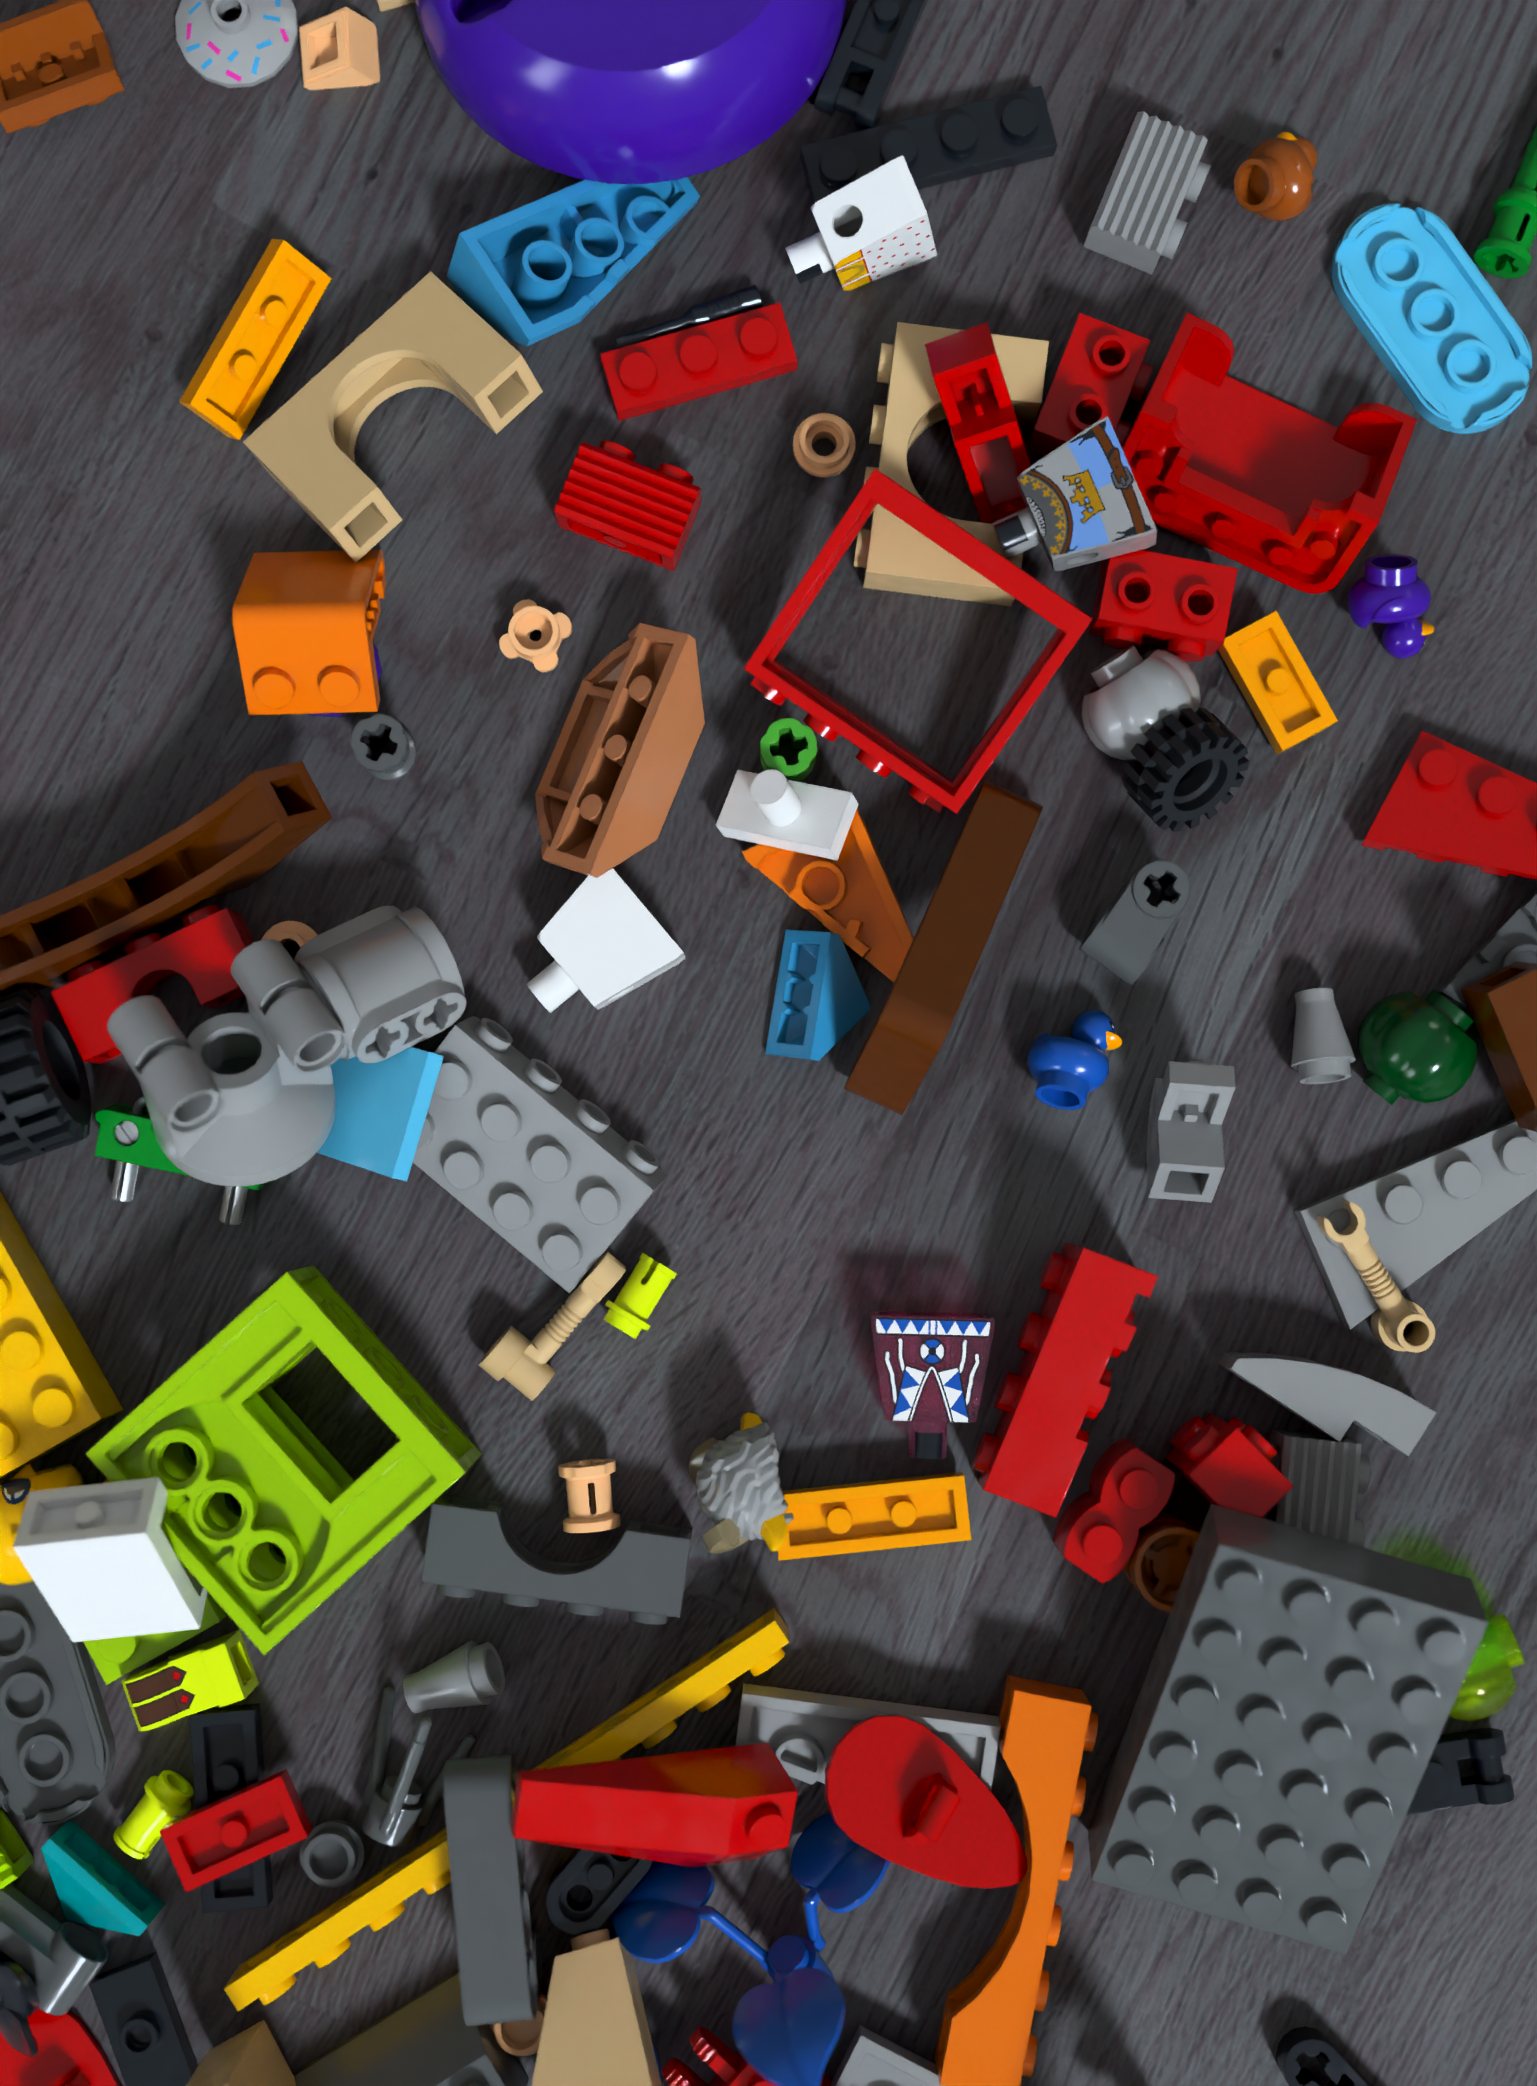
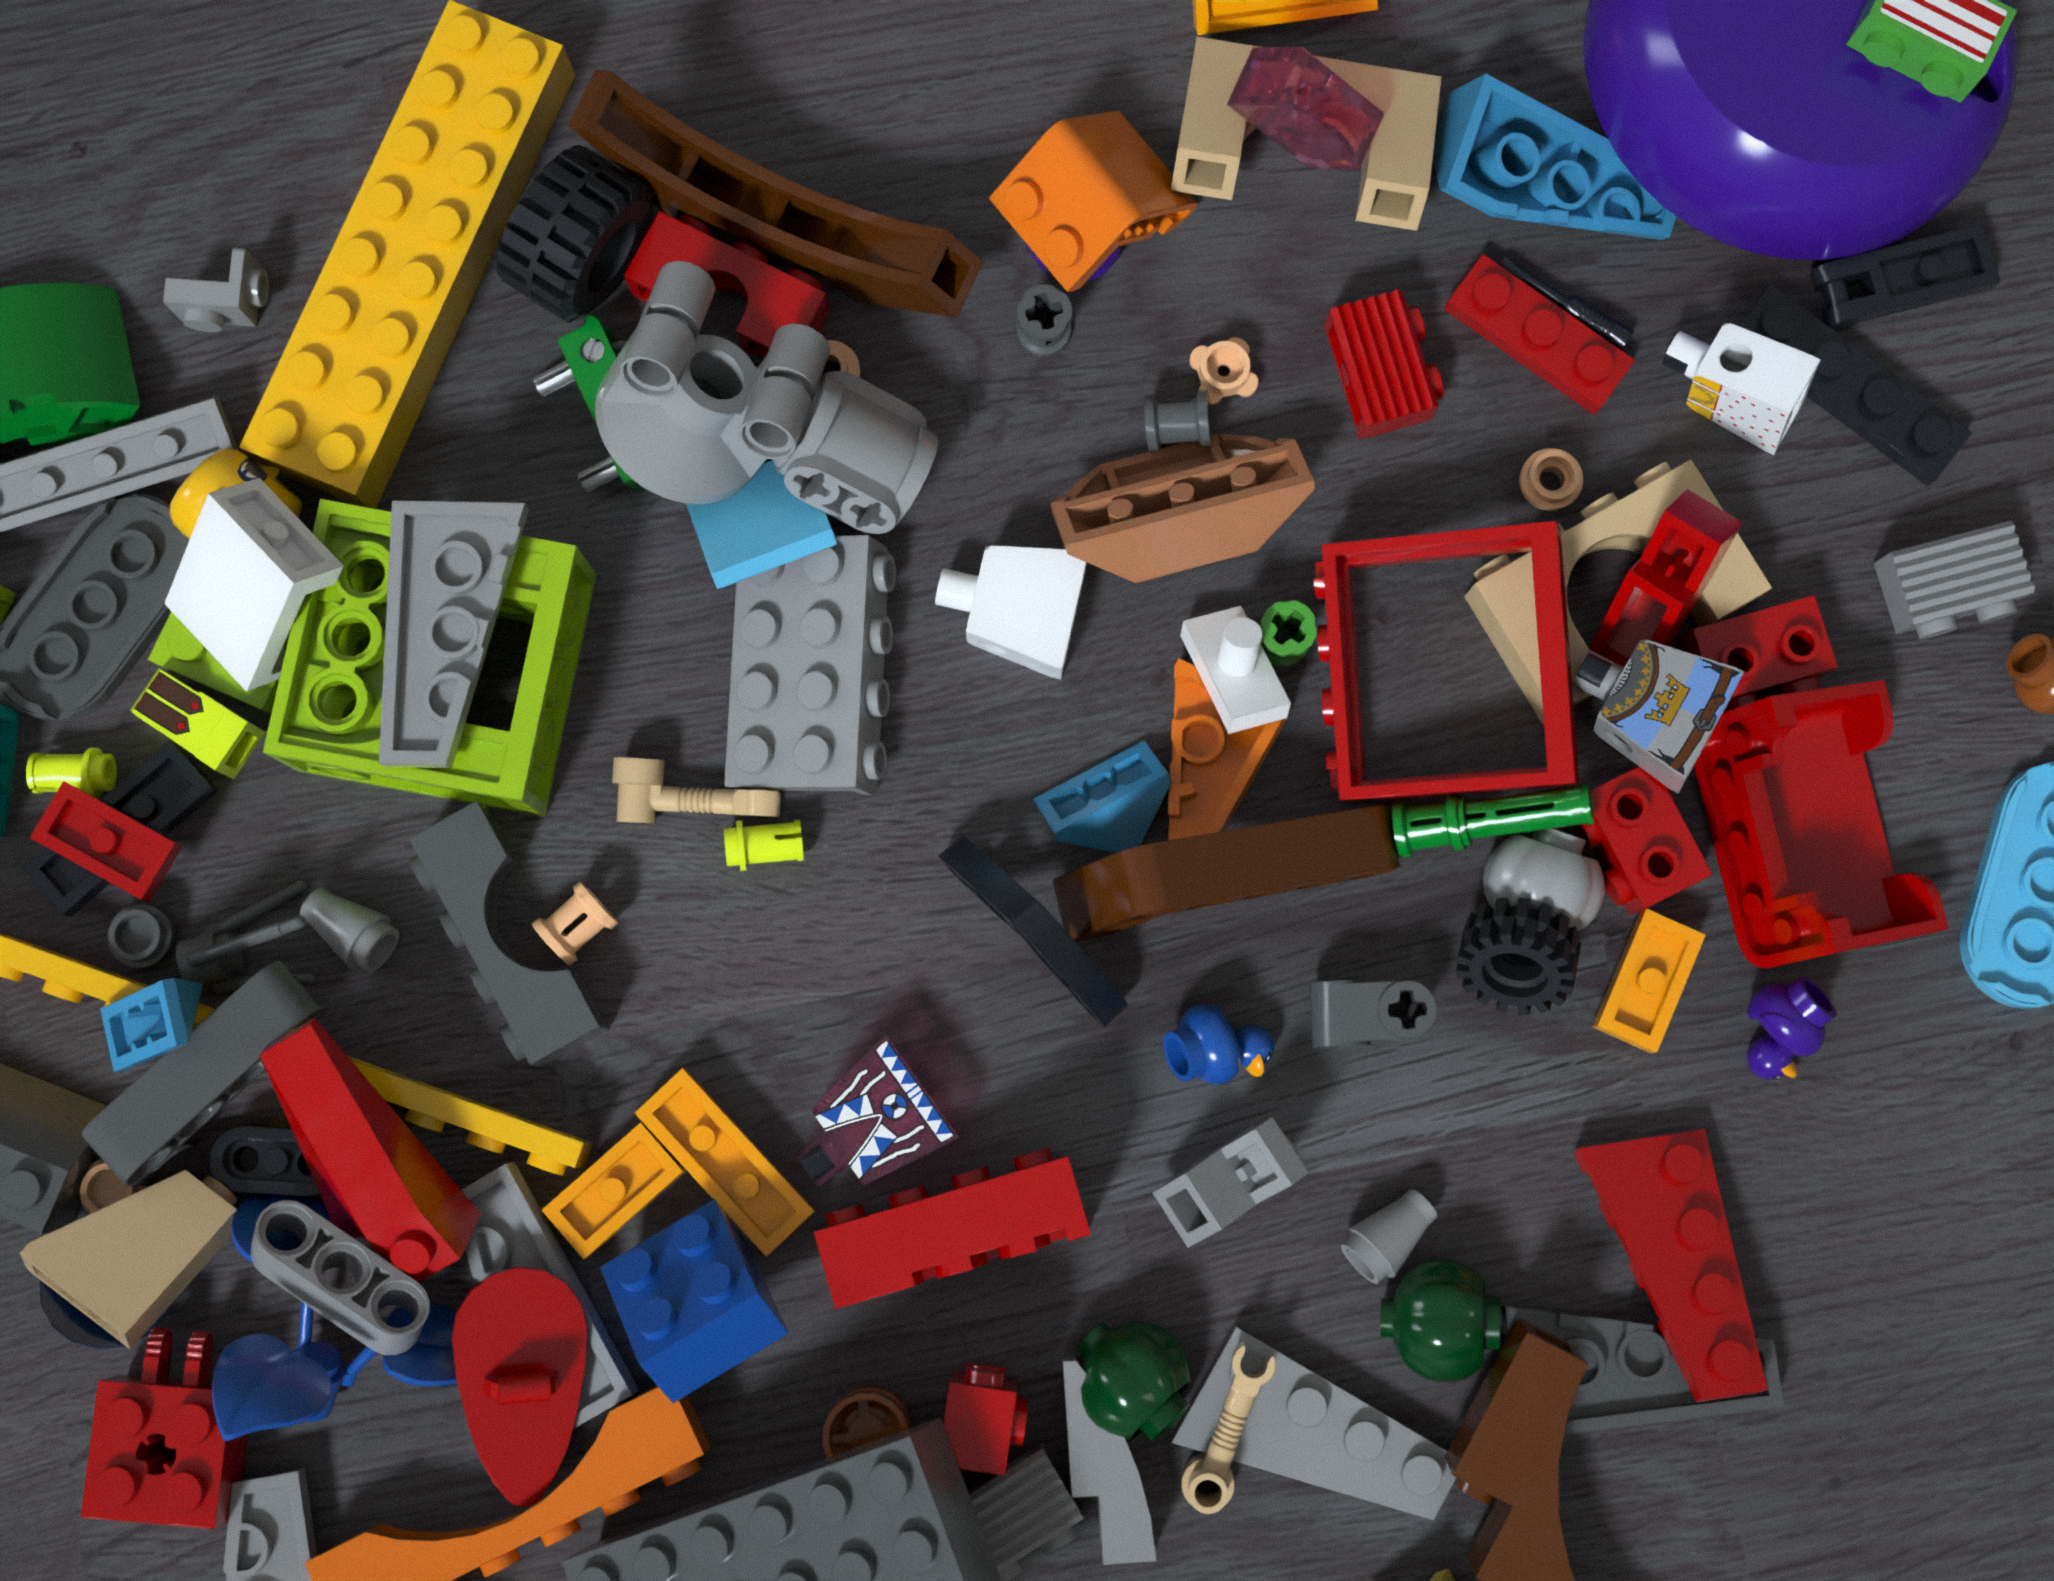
camera: 55 degrees right, 5 degrees down
(260, 1425) = (440, 614): none -> light grey wing
(376, 400) = (1305, 108): none -> clear pink brick
(418, 1903) = (150, 1022): none -> dark azure slope
(549, 703) = (1178, 420): none -> dark grey bush
(706, 1891) = (329, 1247): none -> light grey beam
(741, 1487) = (668, 1036): light grey hair -> none
(827, 1622) = (613, 1190): none -> light orange plate
(871, 1134) = (1035, 927): none -> black beam
(966, 1626) = (693, 1301): none -> blue brick
(1104, 636) = (1461, 821): none -> green pin
(1104, 1523) = (857, 1355): red brick -> none
(1282, 1322) = (1134, 1379): none -> dark green plant

